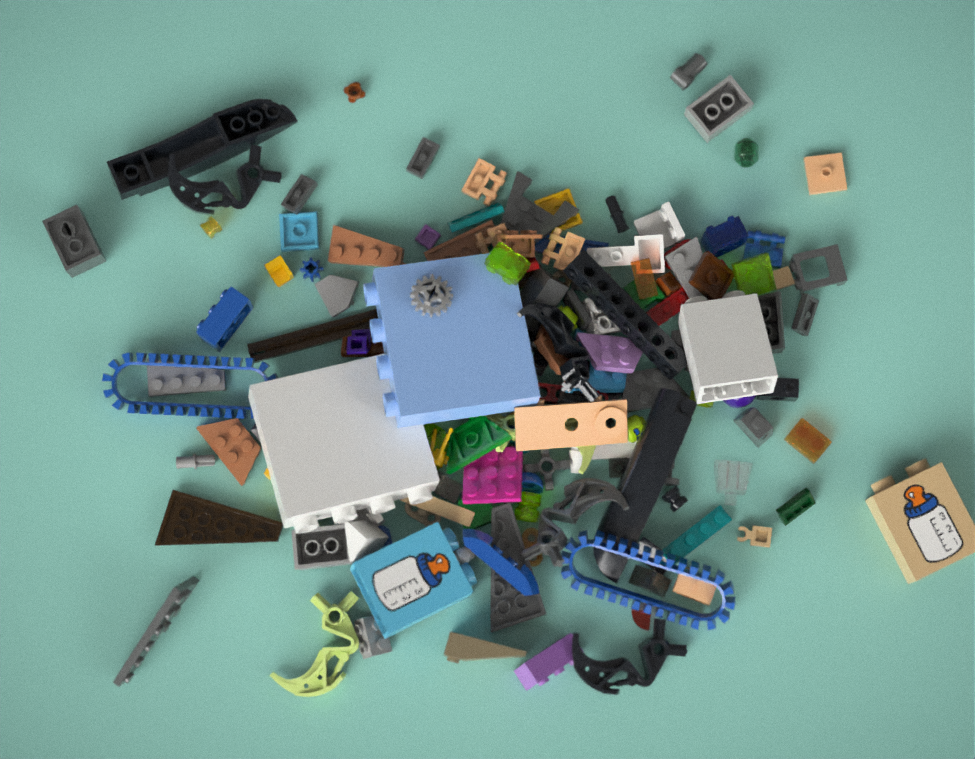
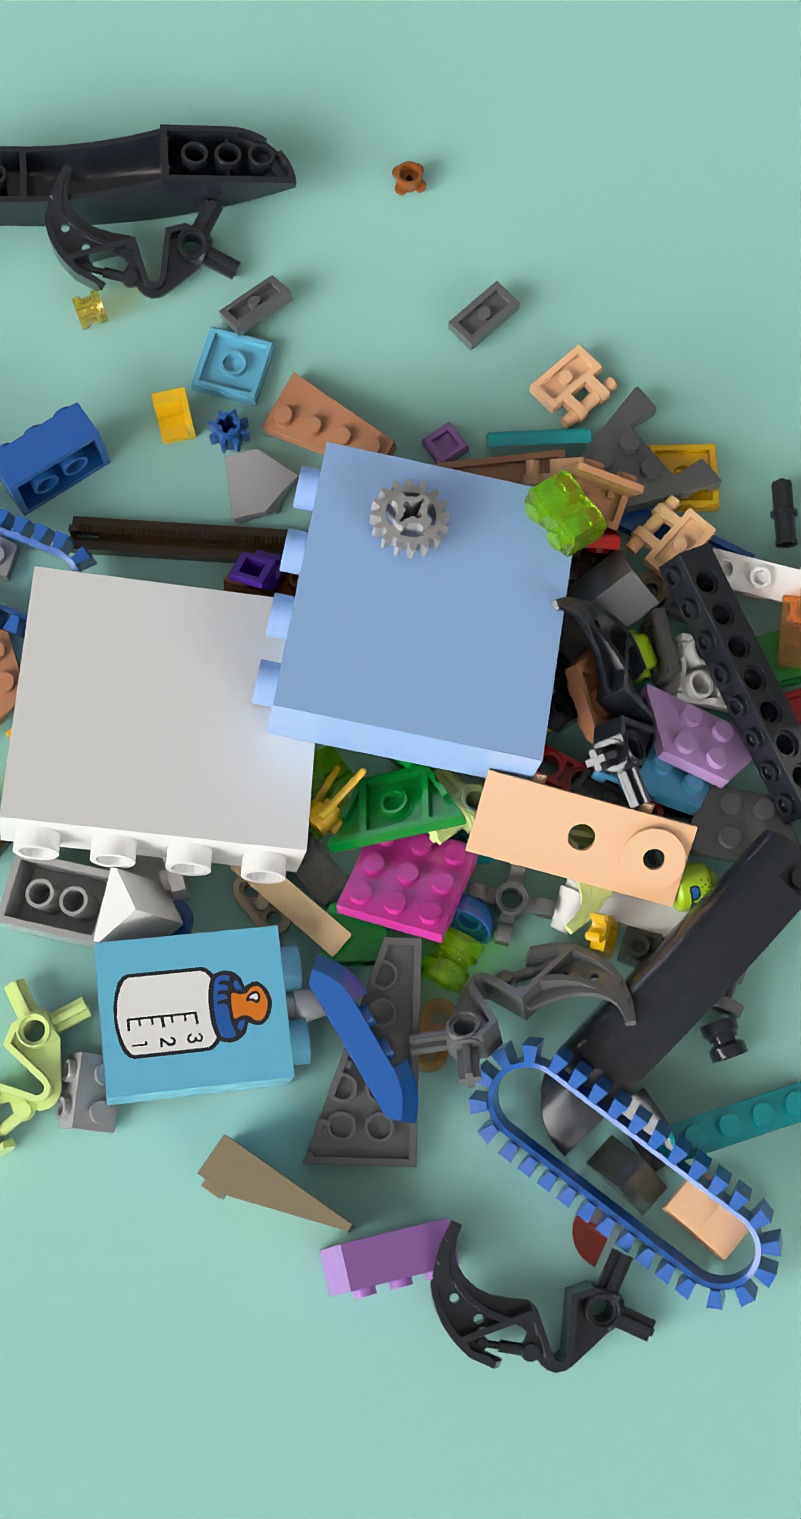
camera: 20 degrees right, 5 degrees down
(598, 468) = (602, 935): none -> yellow plate

